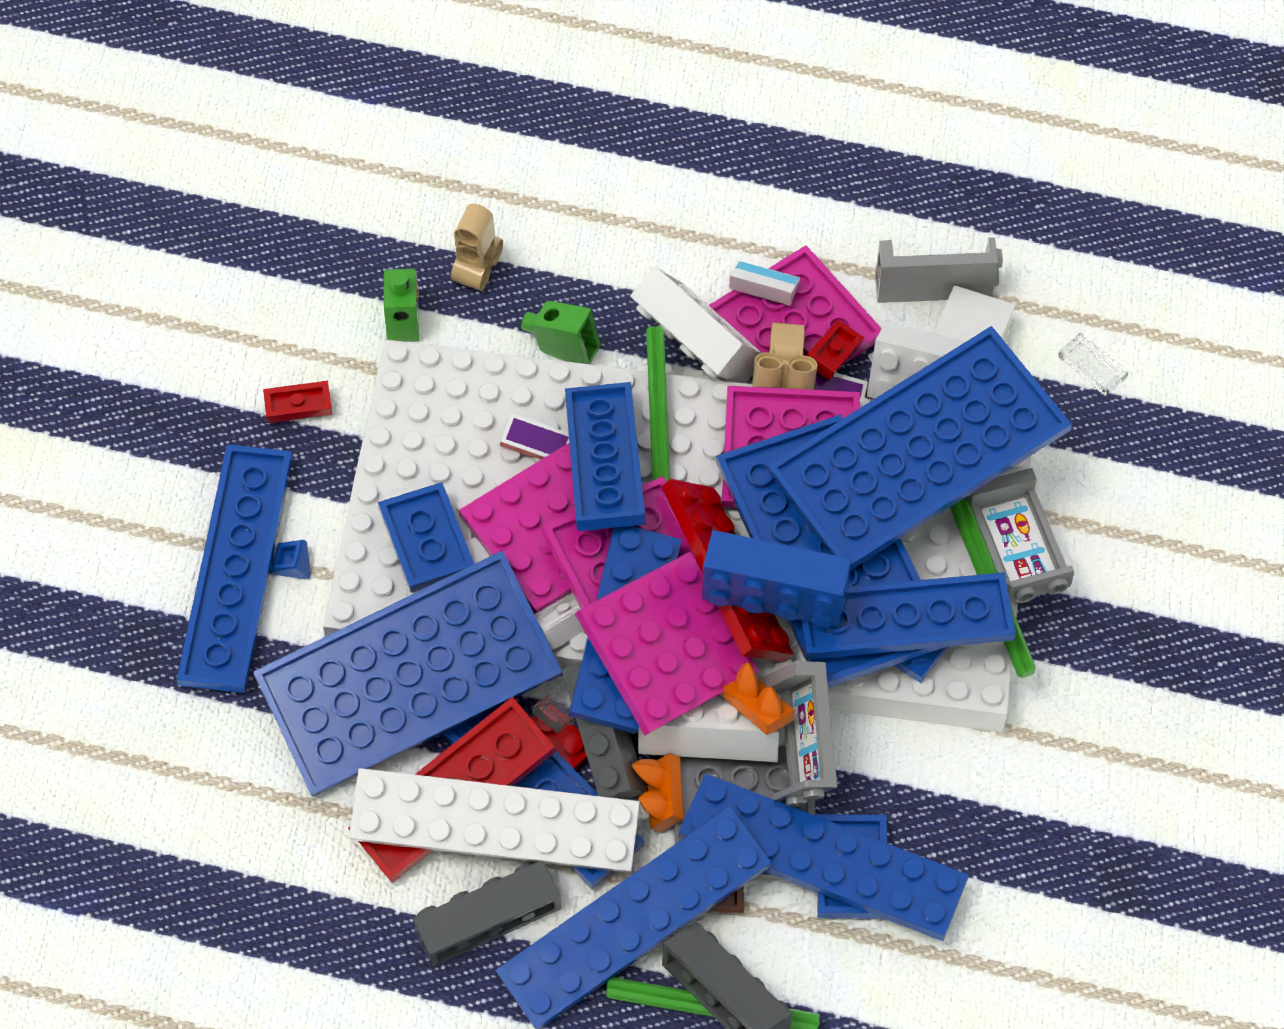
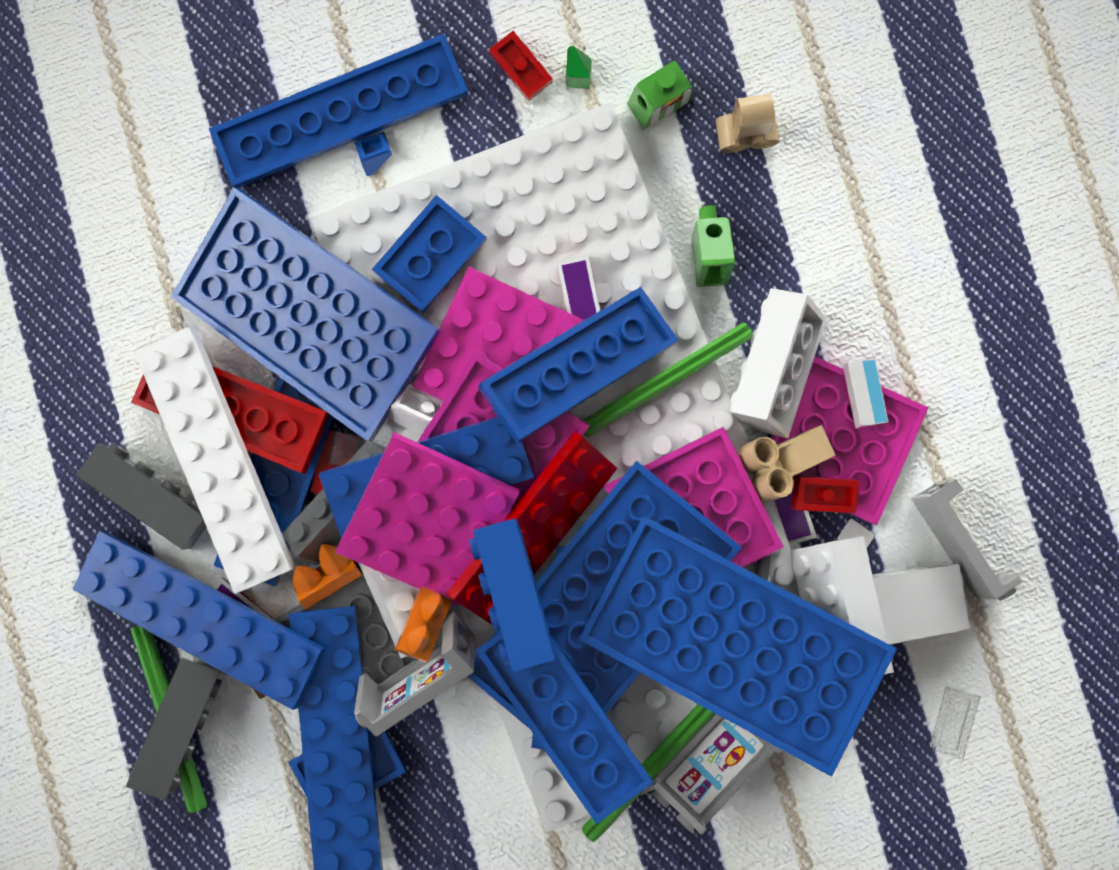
camera: 60 degrees right, 25 degrees up
(332, 359) = (578, 69): none -> green slope

